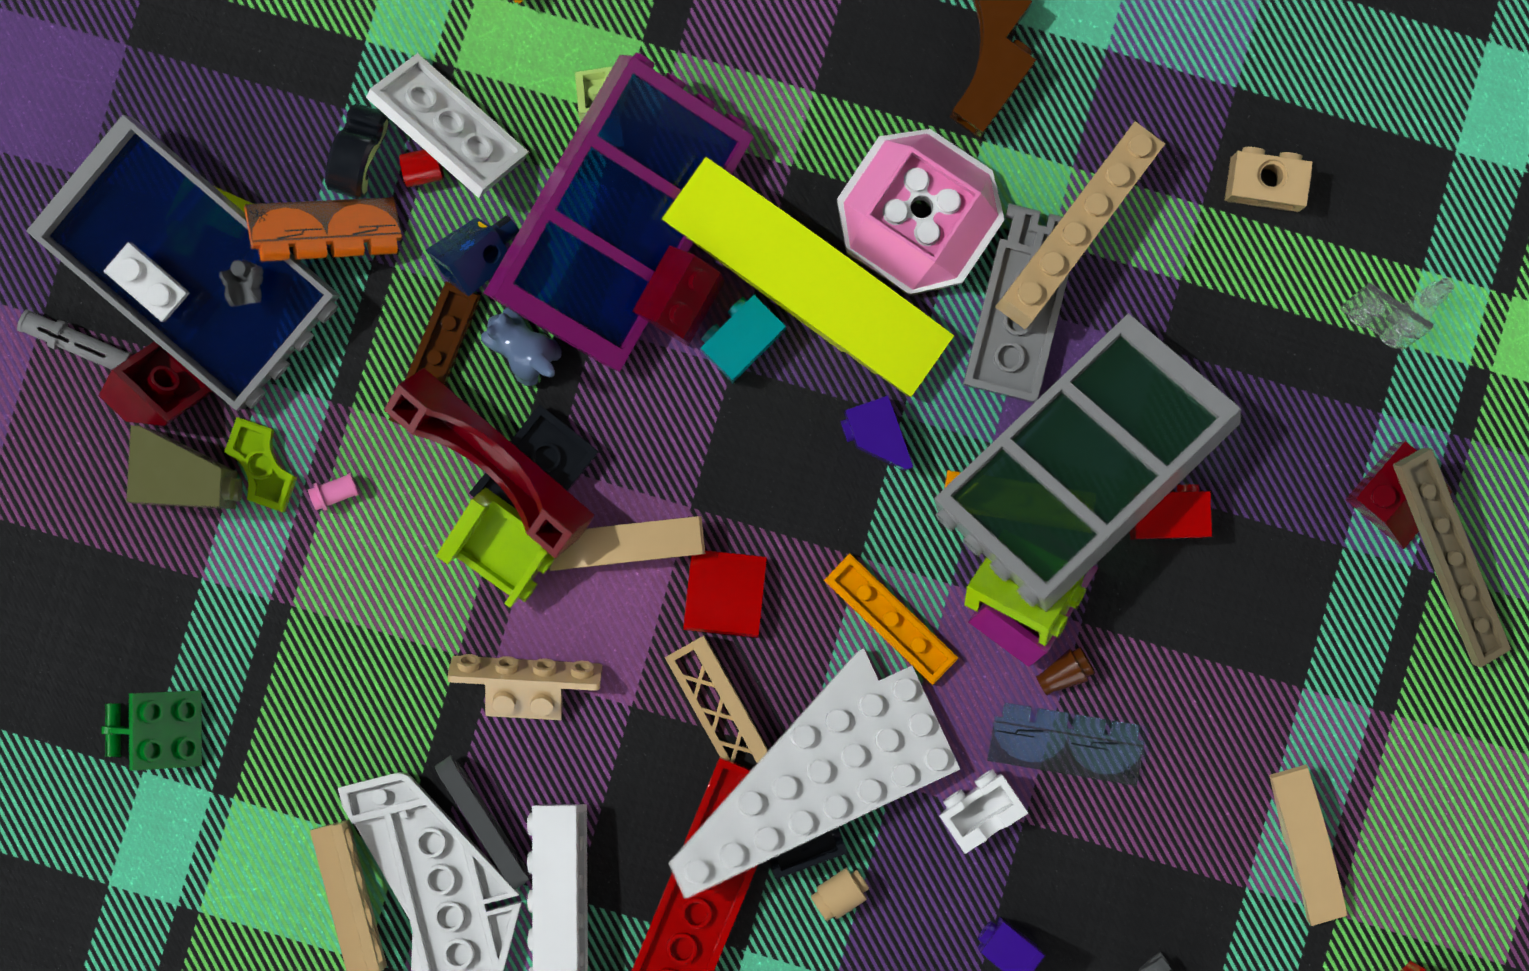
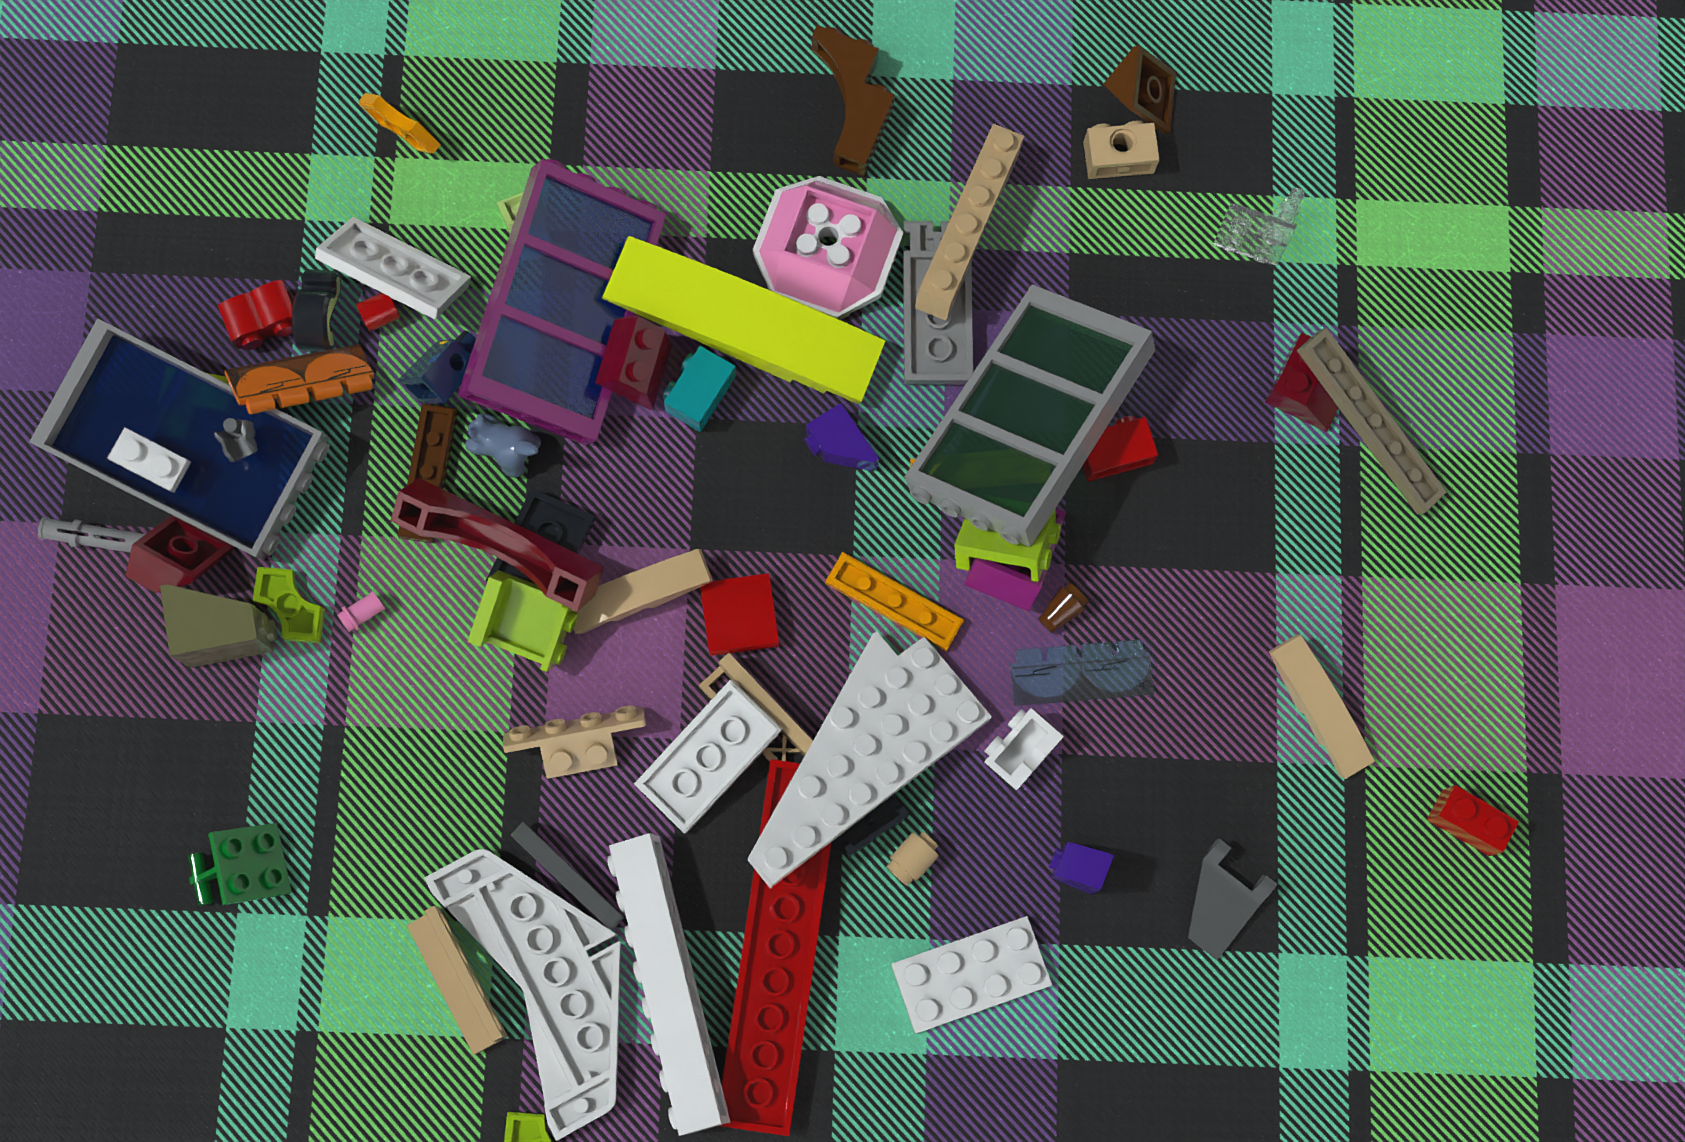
camera: 20 degrees left, 10 degrees down
(294, 141) = (258, 315): none -> red brick
(656, 737) = (708, 756): none -> white tile
(1314, 117) = (1145, 87): none -> reddish brown slope

